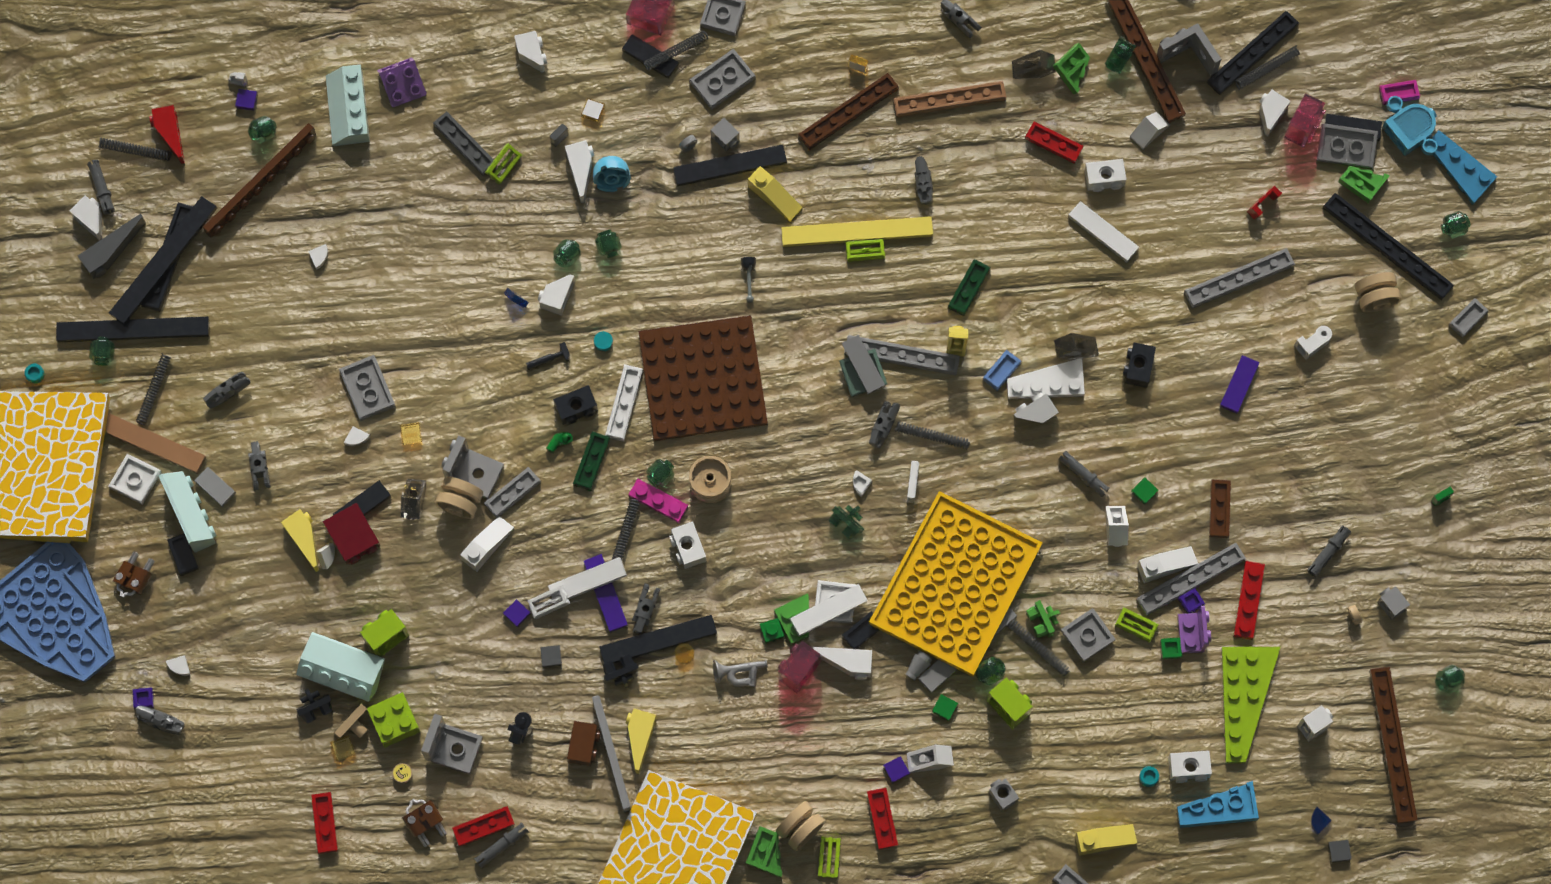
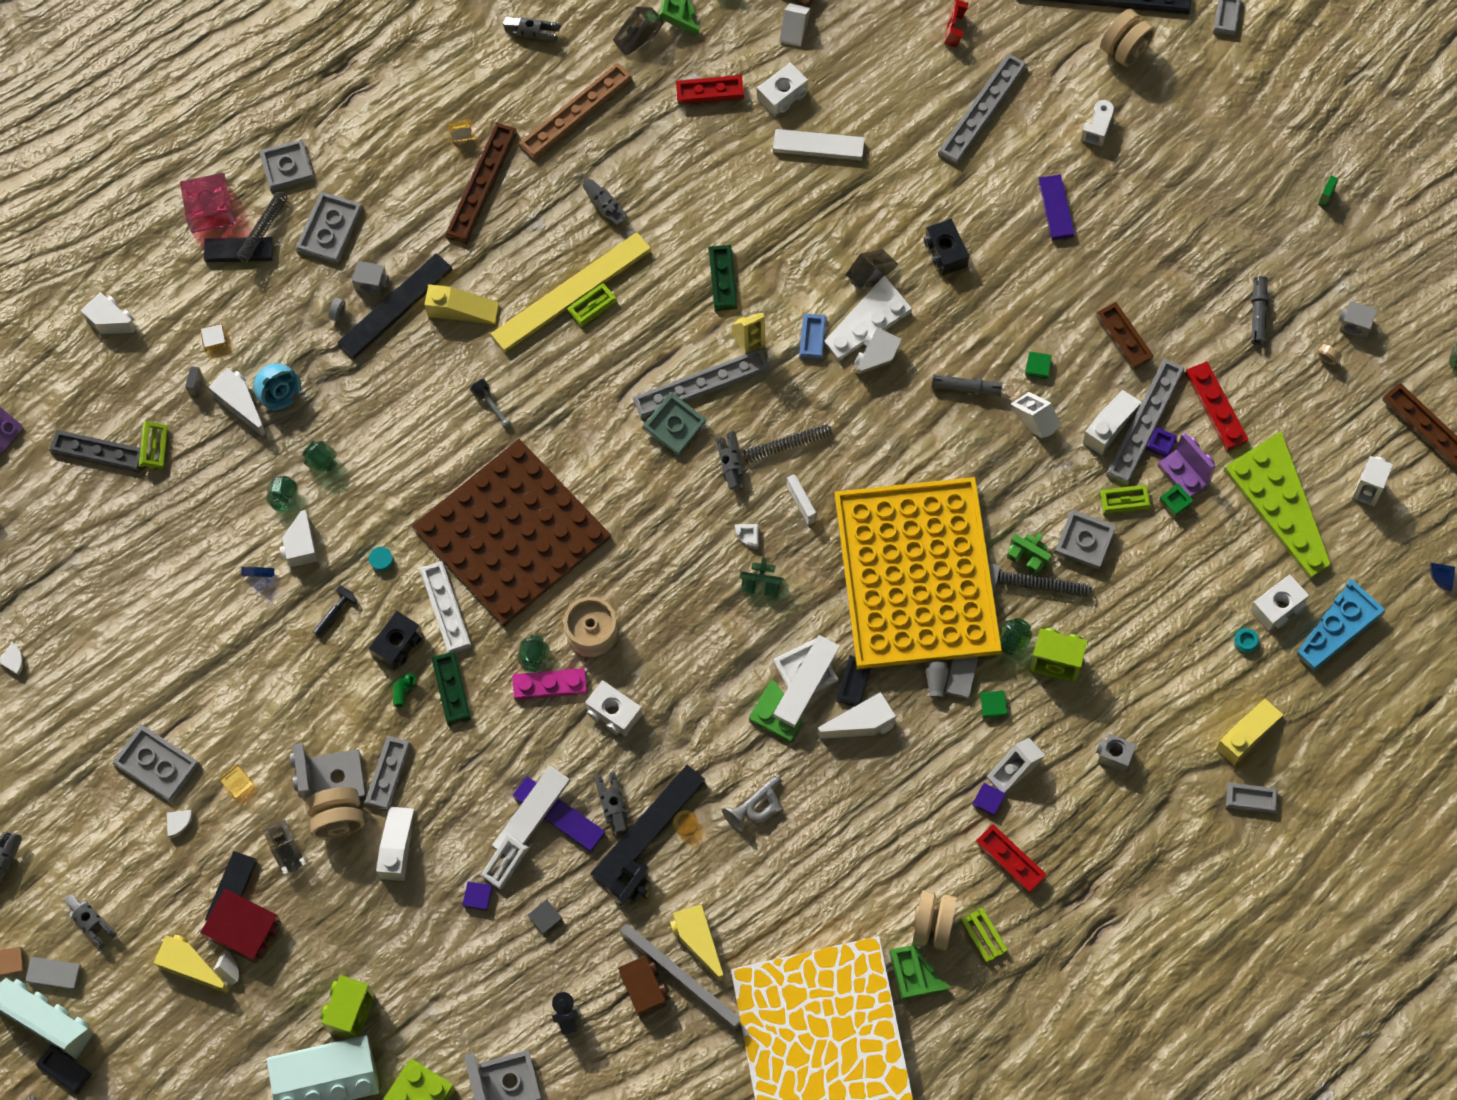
camera: 30 degrees left, 5 degrees down
(632, 517) = (535, 727): dark grey piece -> none
(771, 630) = (760, 741): green plate -> none
(799, 666) = (817, 759): clear pink brick -> none
(863, 364) = (670, 414): light grey tile -> none

